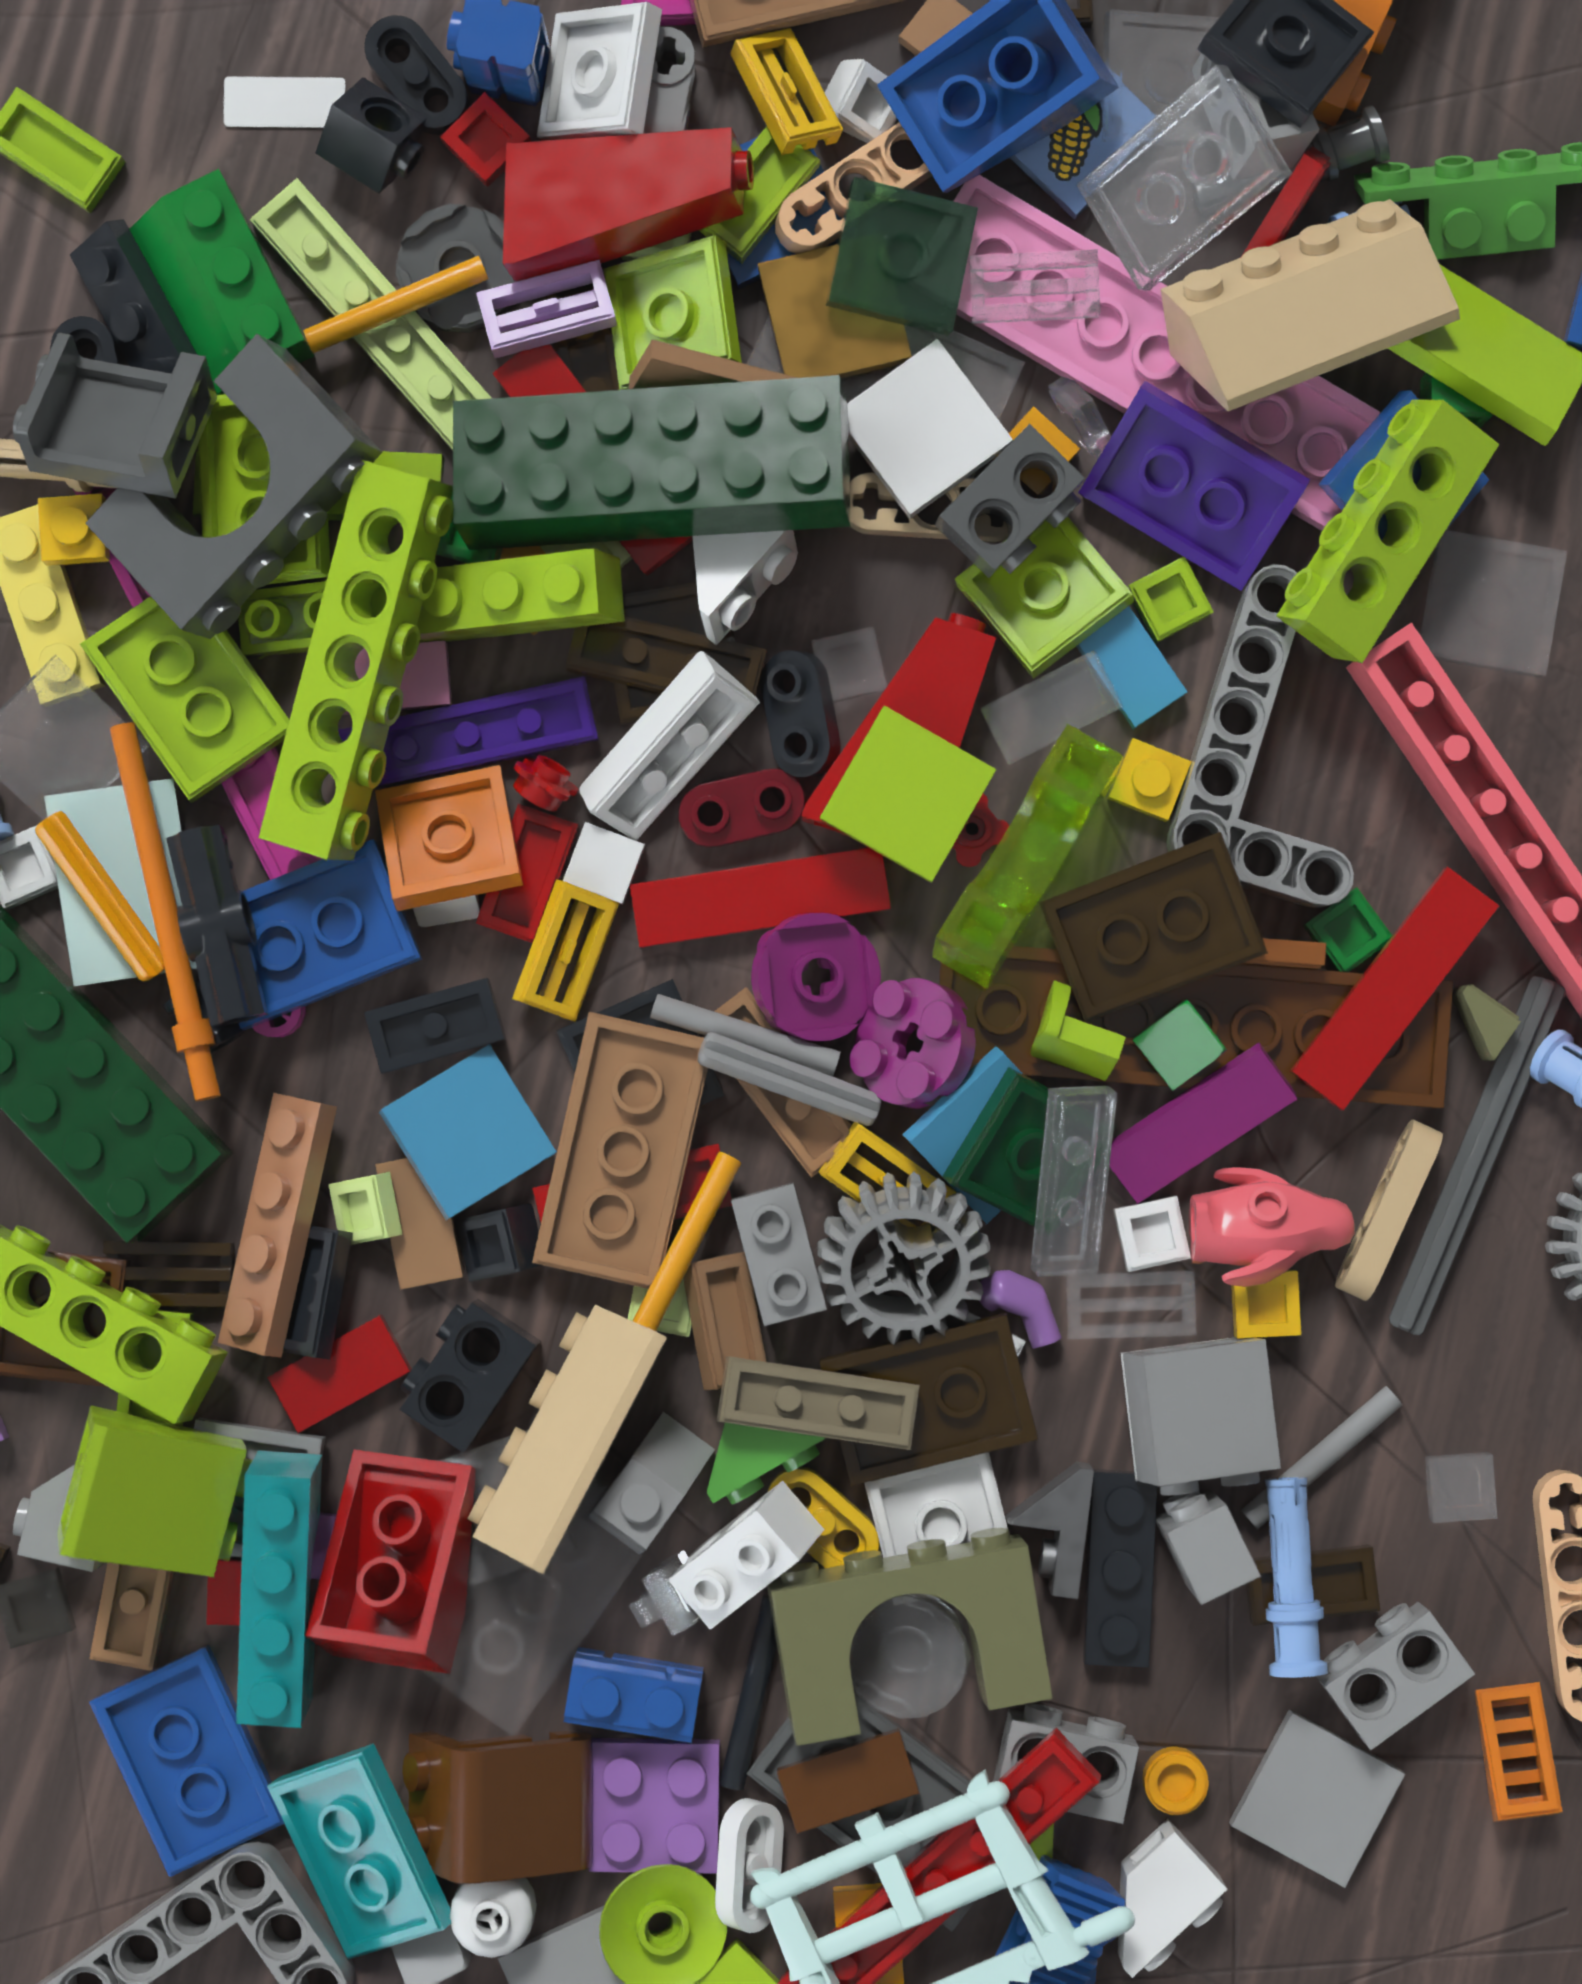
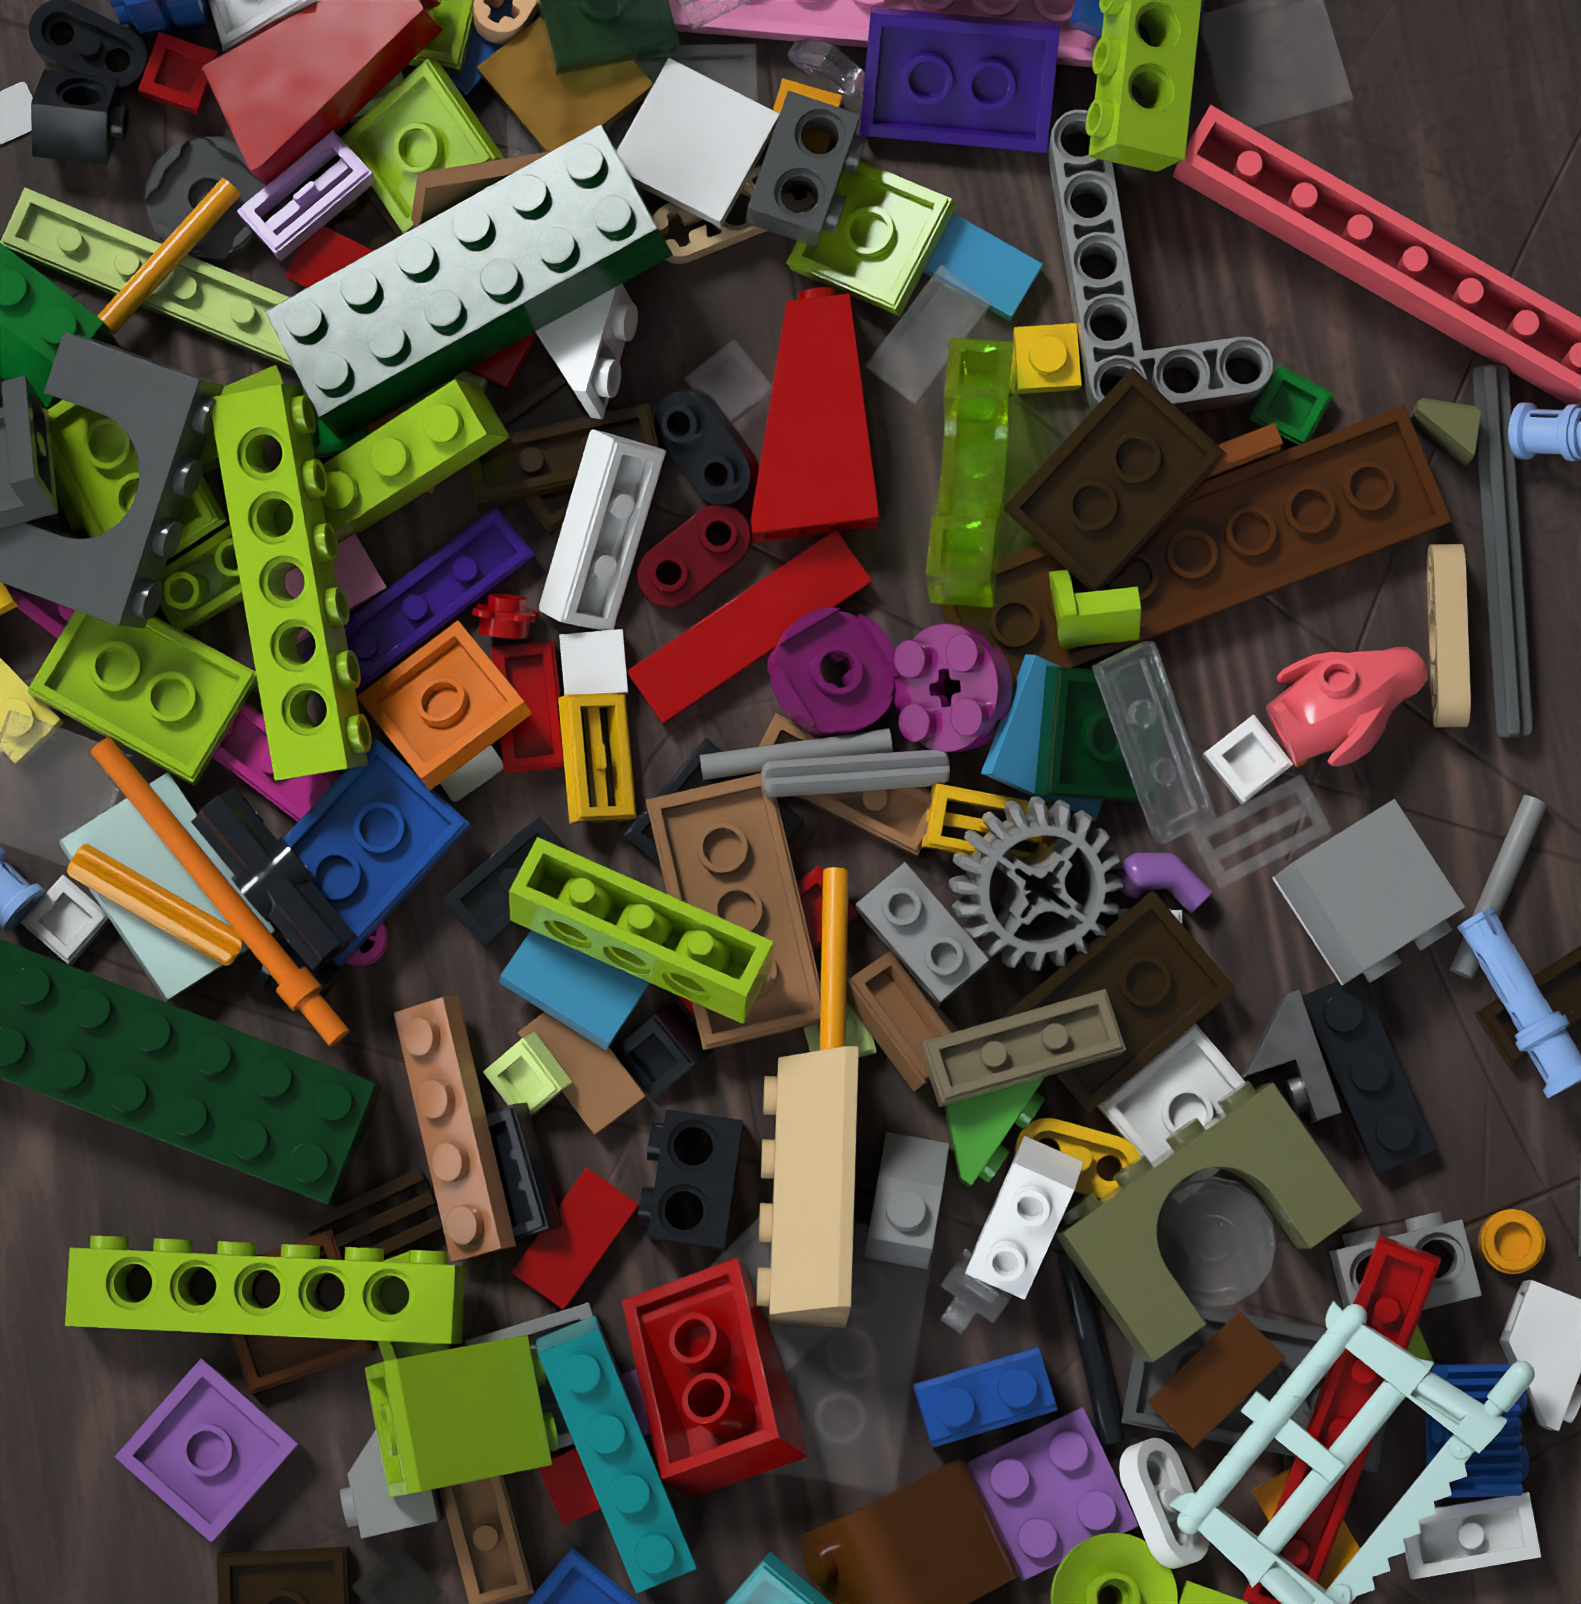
camera: 30 degrees left, 5 degrees down
(523, 1133) = (640, 930): none -> lime brick
(907, 794) = (838, 467): lime tile -> none
(990, 832) = (892, 482): red plate -> none
(1170, 600) = (988, 191): lime tile -> none
(1179, 1044) = (1189, 574): slope -> none
(1199, 1122) = (1241, 637): magenta tile -> none
(1205, 1544) = (1430, 1007): light grey brick -> none
(1267, 1308) = (1382, 773): yellow plate -> none
(1394, 988) = (1355, 435): red tile -> none

